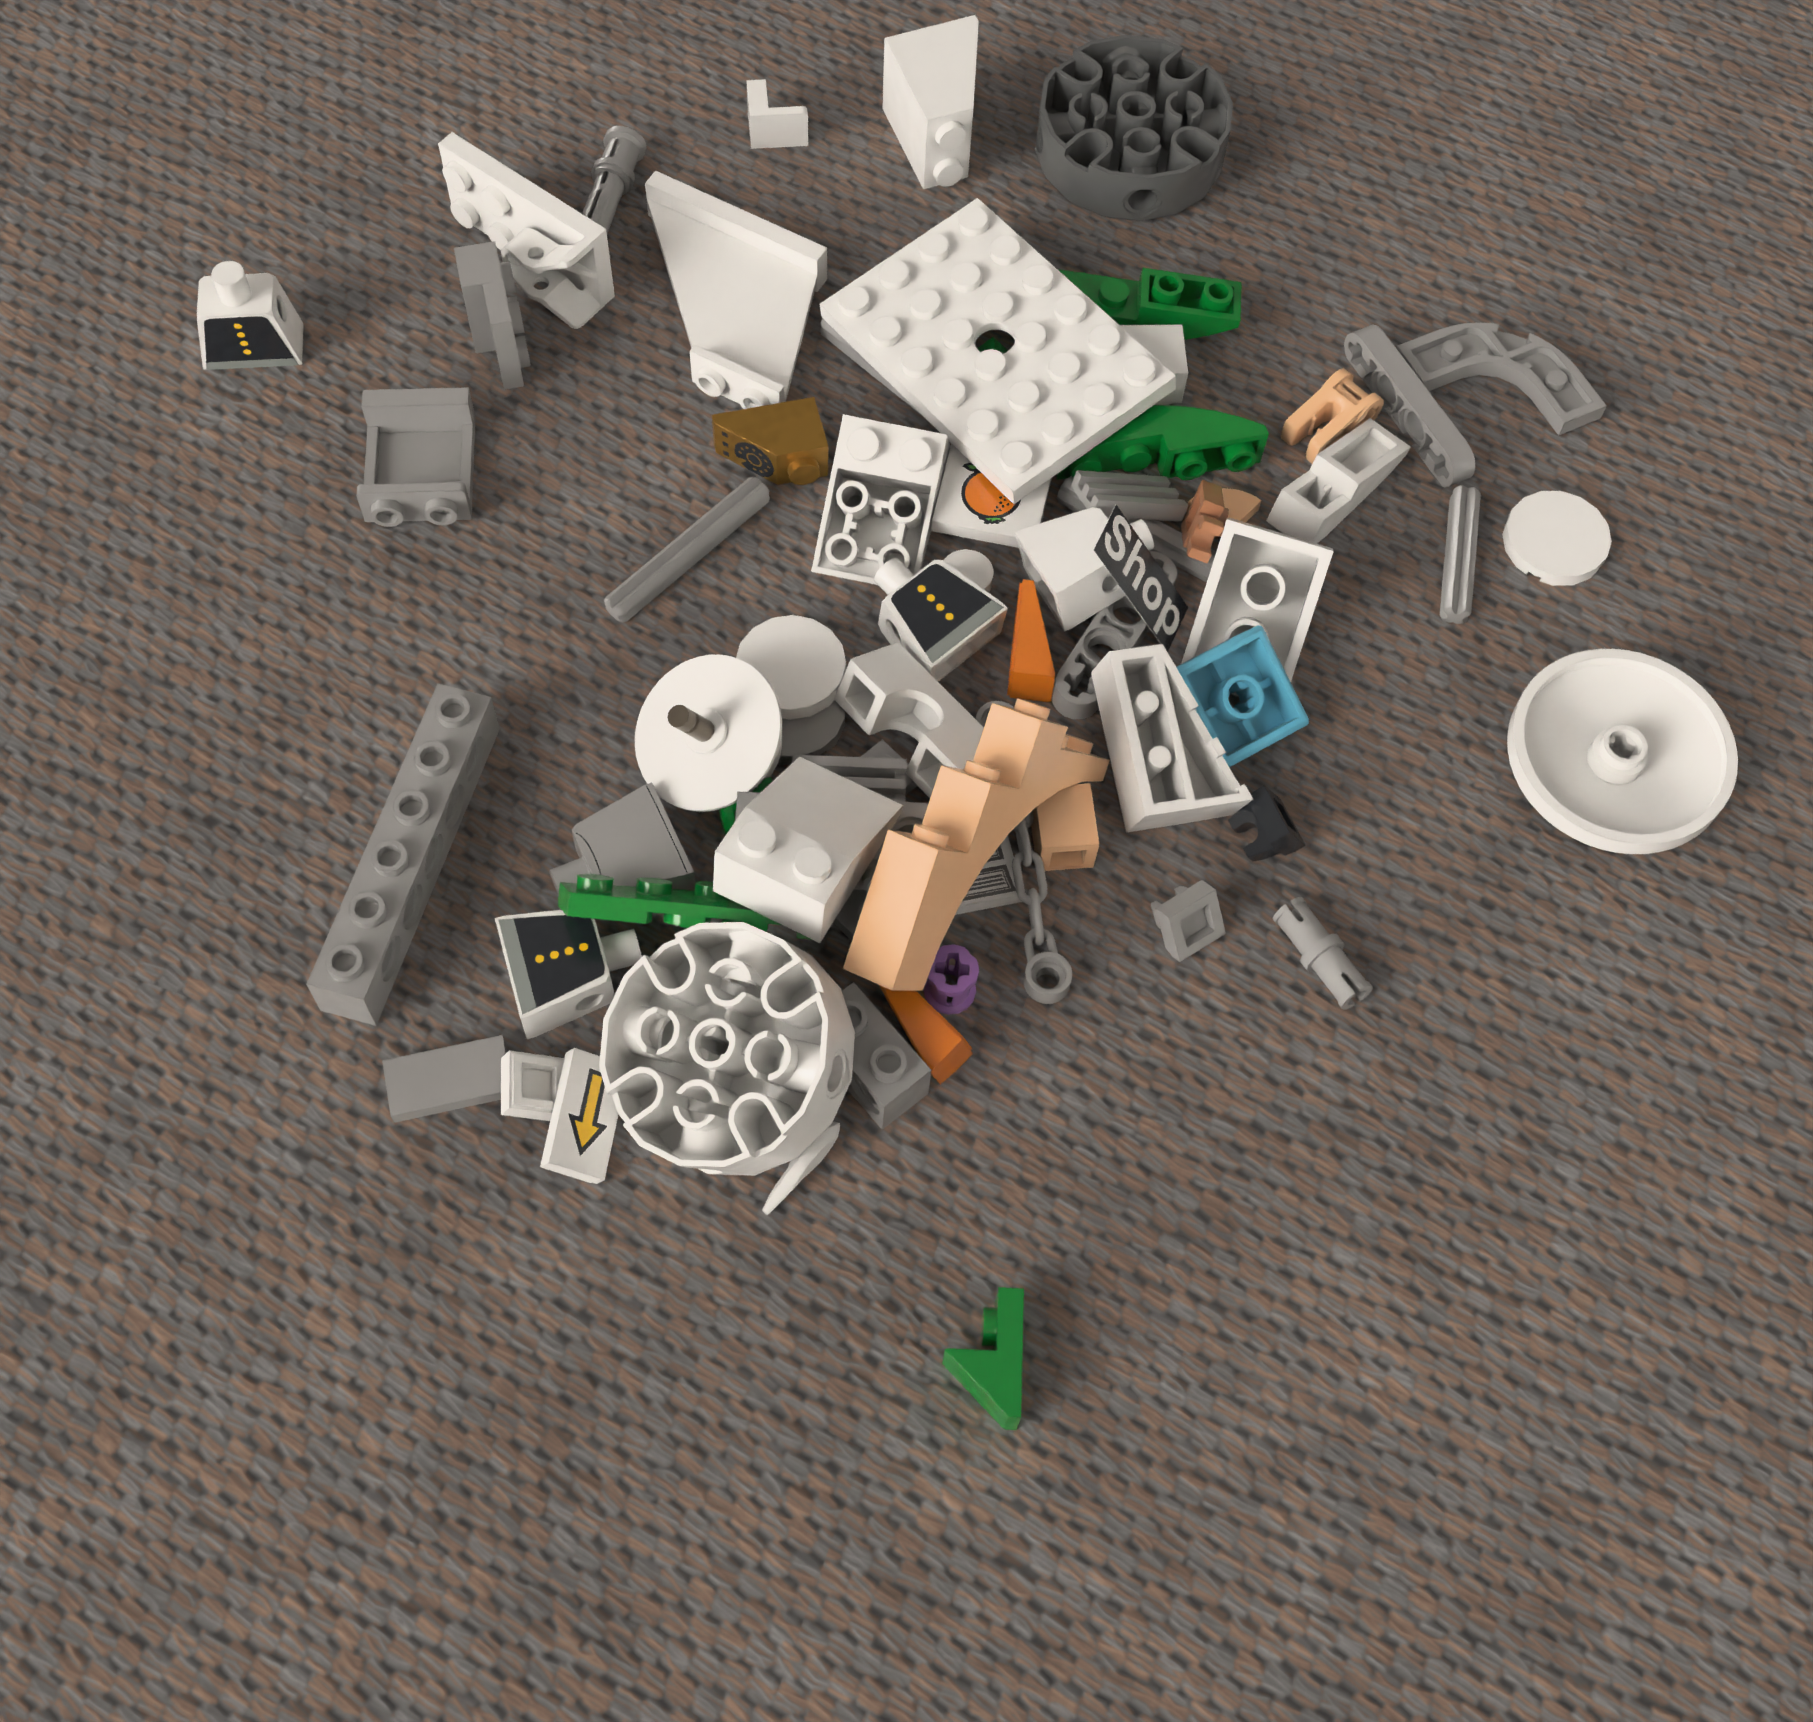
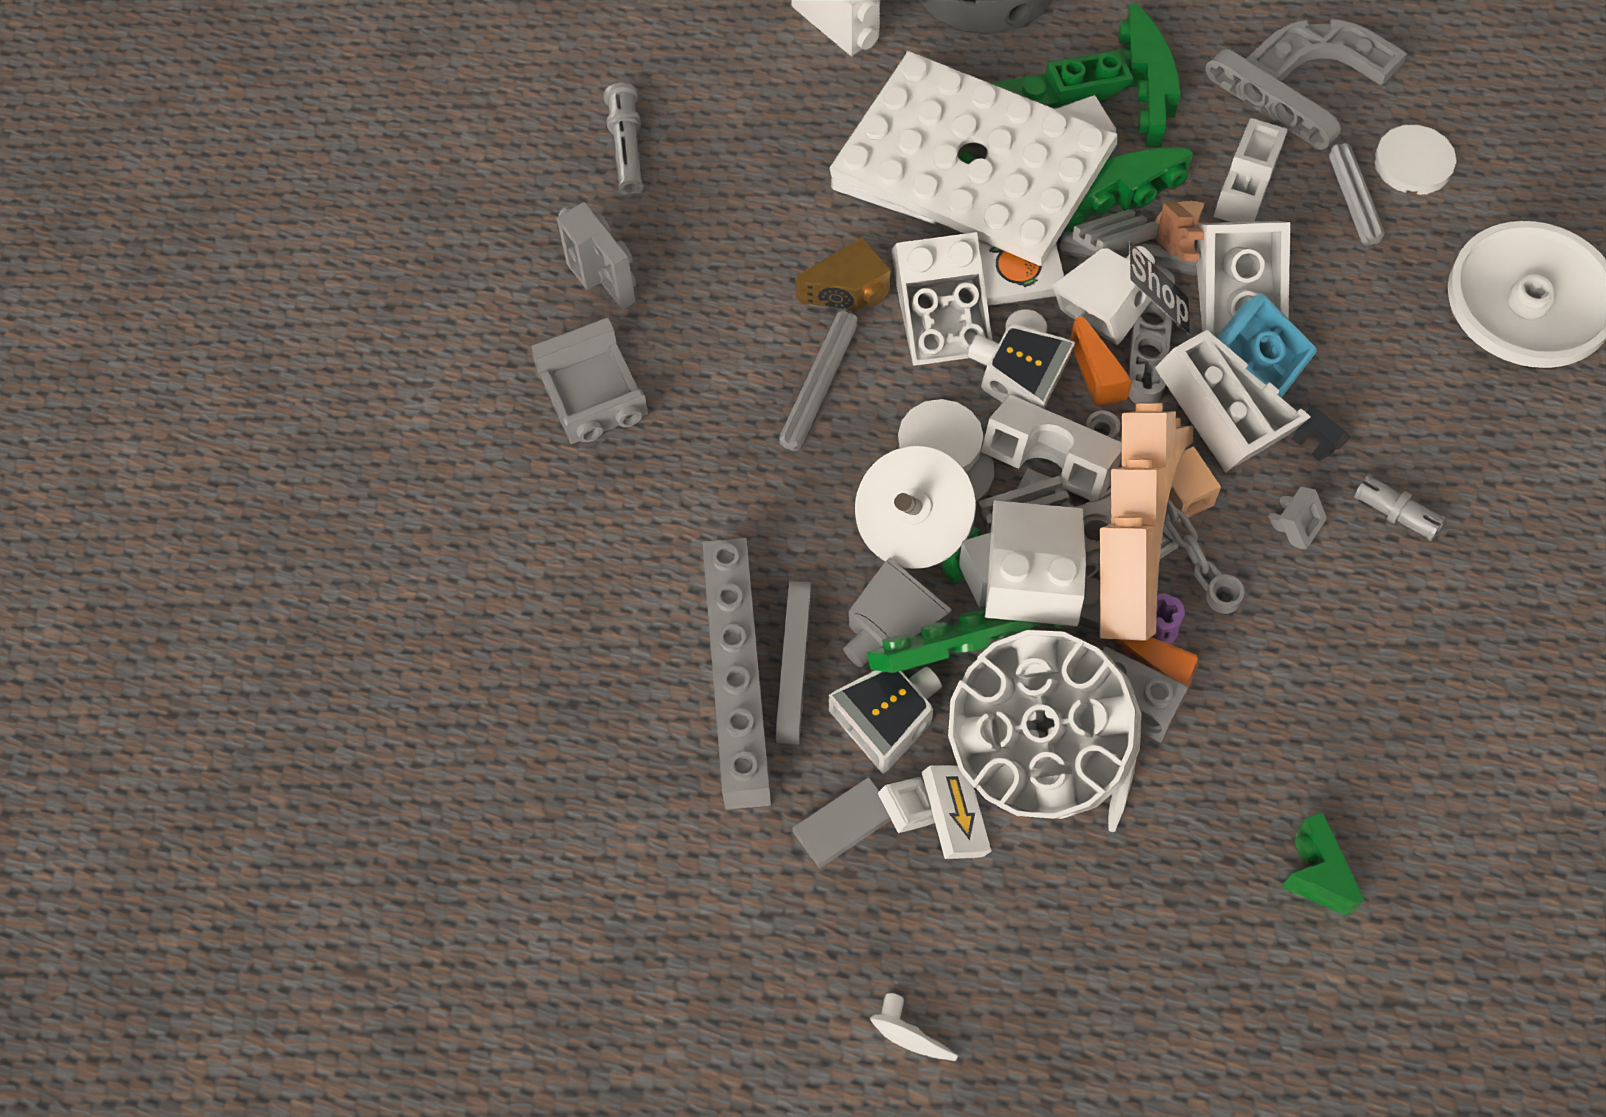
camera: 15 degrees left, 0 degrees up
(246, 320) = (411, 326): torso -> none
(389, 1360) = (905, 1034): none -> white bar
(482, 866) = (793, 663): none -> light grey beam
(532, 230) = (604, 181): white plate -> none
(738, 290) = (761, 175): white piece -> none
(774, 125) = (721, 44): white panel -> none
(1269, 323) = (1152, 73): none -> green slope
(1339, 403) = (1228, 115): light nougat piece -> none

